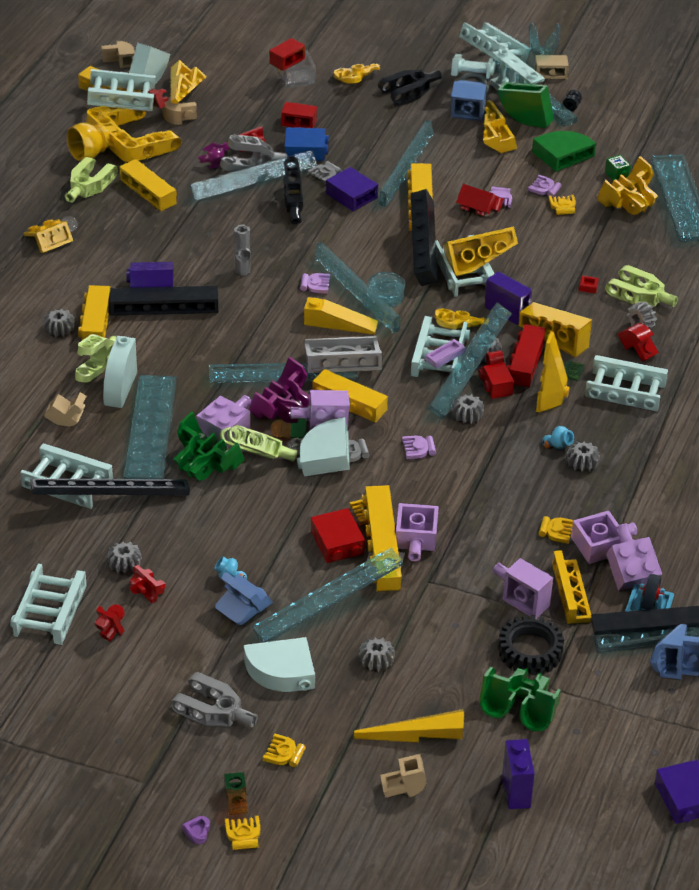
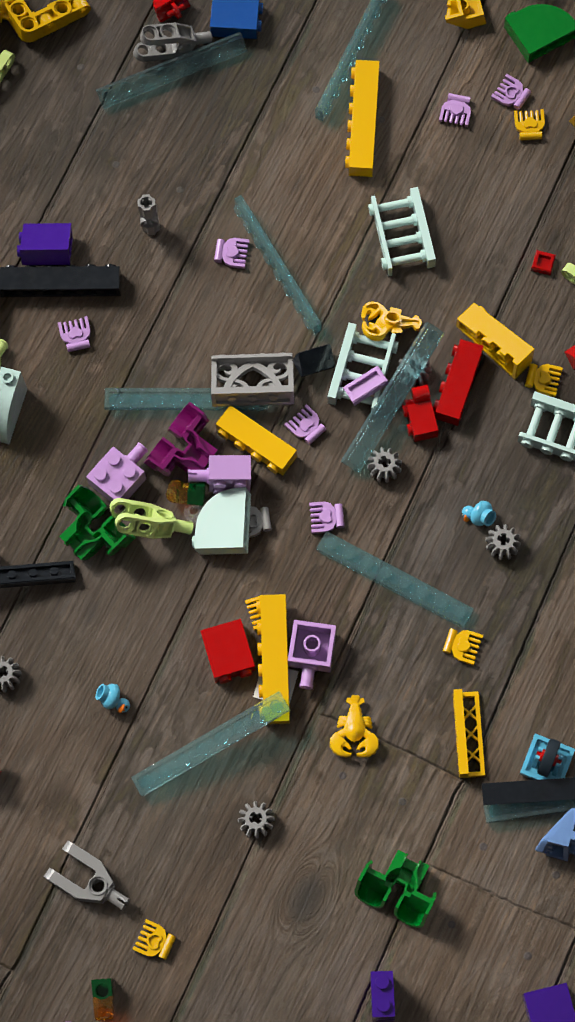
camera: 10 degrees right, 30 degrees up
(144, 583) = (22, 714): red hips -> none
(148, 185) = (48, 84): yellow brick -> none
(150, 427) = (38, 480): clear light blue plate -> none
(179, 337) = (76, 337): none -> lavender piece
(214, 154) = (128, 34): magenta piece -> none
(241, 599) = (124, 739): medium blue piece -> none
(281, 665) = (158, 830): light aqua brick -> none
(293, 190) = (214, 110): black piece -> none
(326, 171) = (258, 61): light grey piece -> none
(333, 316) = (247, 307): yellow wedge -> none
(351, 189) = (283, 96): dark purple brick -> none
(388, 287) = (310, 258): clear light blue wheel -> none
(395, 388) = (308, 427): none -> lavender piece
(396, 341) = (314, 360): none -> black slope
(408, 779) = (269, 989): tan brick -> none
(424, 237) = (358, 195): black brick -> none
(442, 725) = (308, 916): yellow wedge -> none
(463, 586) = (354, 730): none -> yellow animal
(472, 252) = (415, 221): yellow wedge -> none
(478, 200) = (430, 123): red hinge -> none
(487, 486) = (395, 579): none -> clear light blue plate
(508, 294) = (444, 294): dark purple brick -> none
(525, 587) = (417, 738): lavender brick -> none
(535, 627) = (422, 787): black tyre -> none
(553, 377) = (481, 435): yellow wedge -> none
(574, 370) = (507, 406): clear green plate -> none
(596, 535) = (508, 667): lavender brick -> none
(600, 350) = (541, 378): none -> yellow piece
(632, 559) = (536, 707): lavender brick -> none

